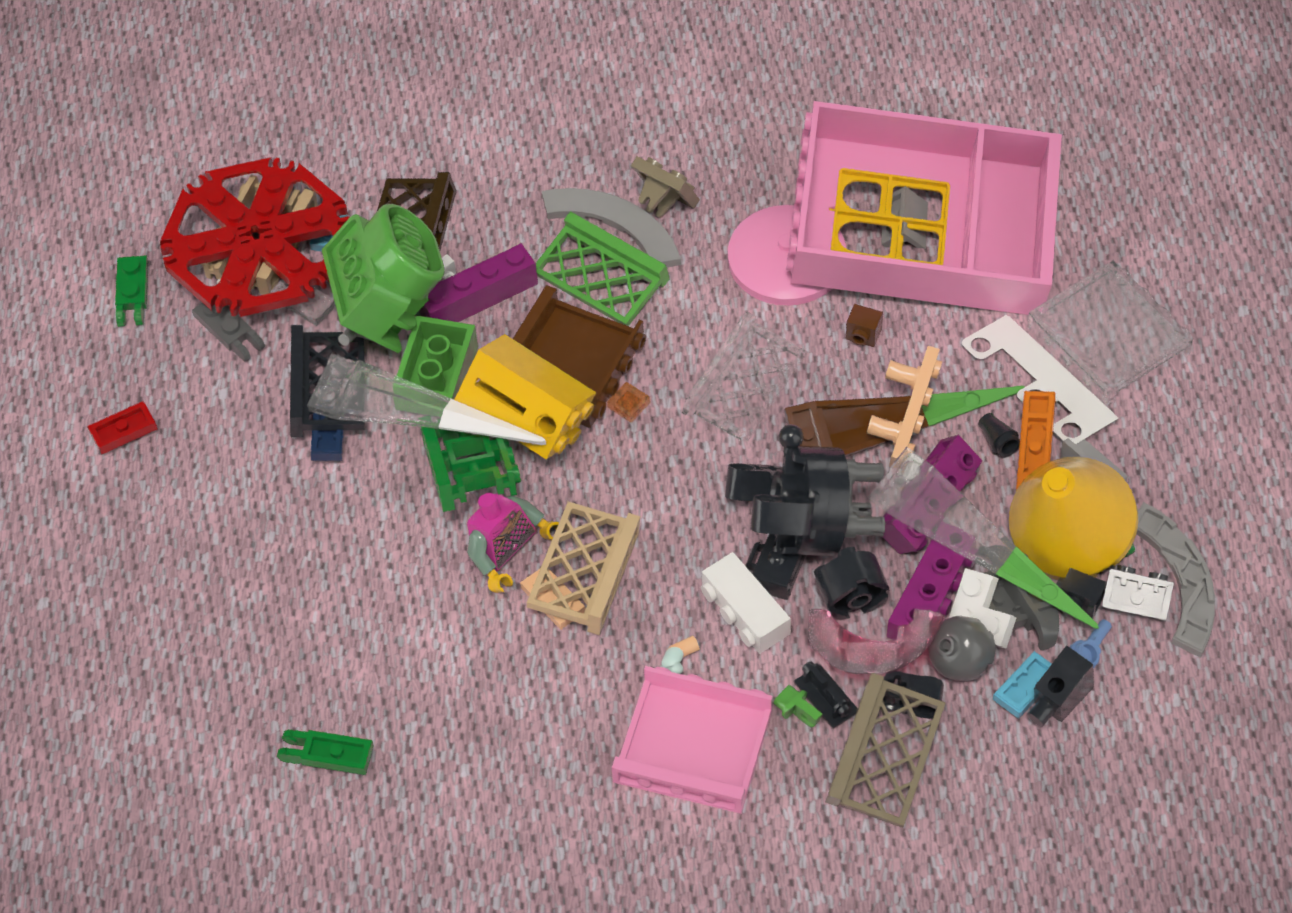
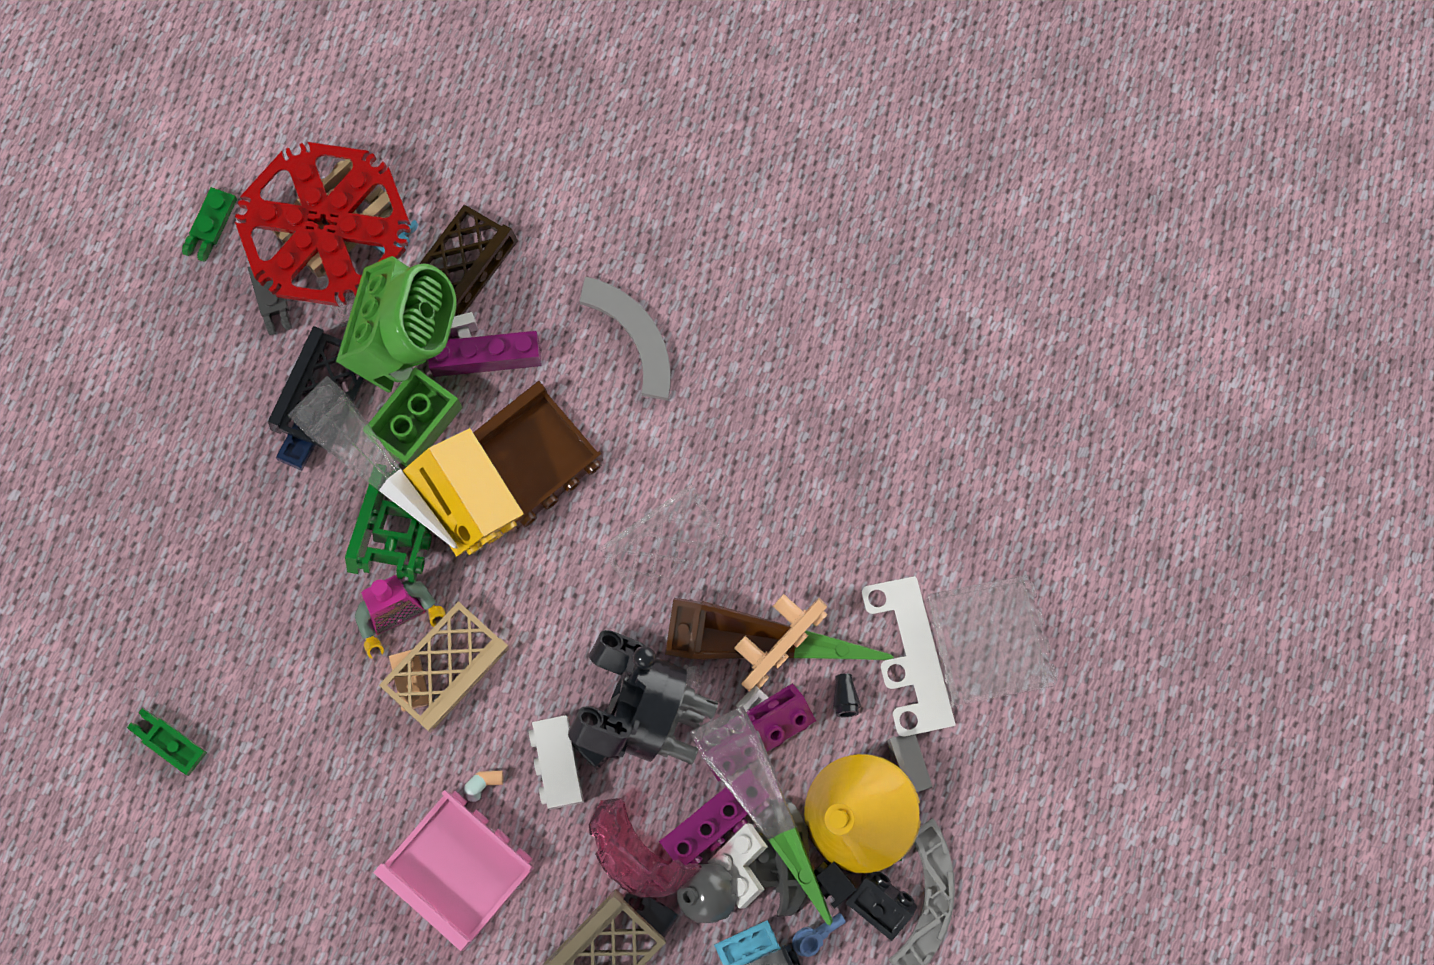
camera: 20 degrees right, 20 degrees up
(122, 427) = (142, 358): red plate -> none
(617, 252) = (615, 367): bright green fence -> none
(628, 402) = (559, 520): clear orange tile -> none
(662, 187) = (683, 323): dark tan plate -> none
(760, 255) = (760, 433): bright pink dish -> none
(794, 702) = (549, 871): bright green piece -> none
(825, 694) = (582, 877): black hinge -> none
(852, 583) = (648, 790): black brick -> none
(864, 325) = (786, 538): reddish brown plate -> none
(907, 204) = (876, 443): light grey panel -> none
(993, 218) = (941, 491): bright pink panel -> none
(1036, 432) = (873, 717): orange plate -> none

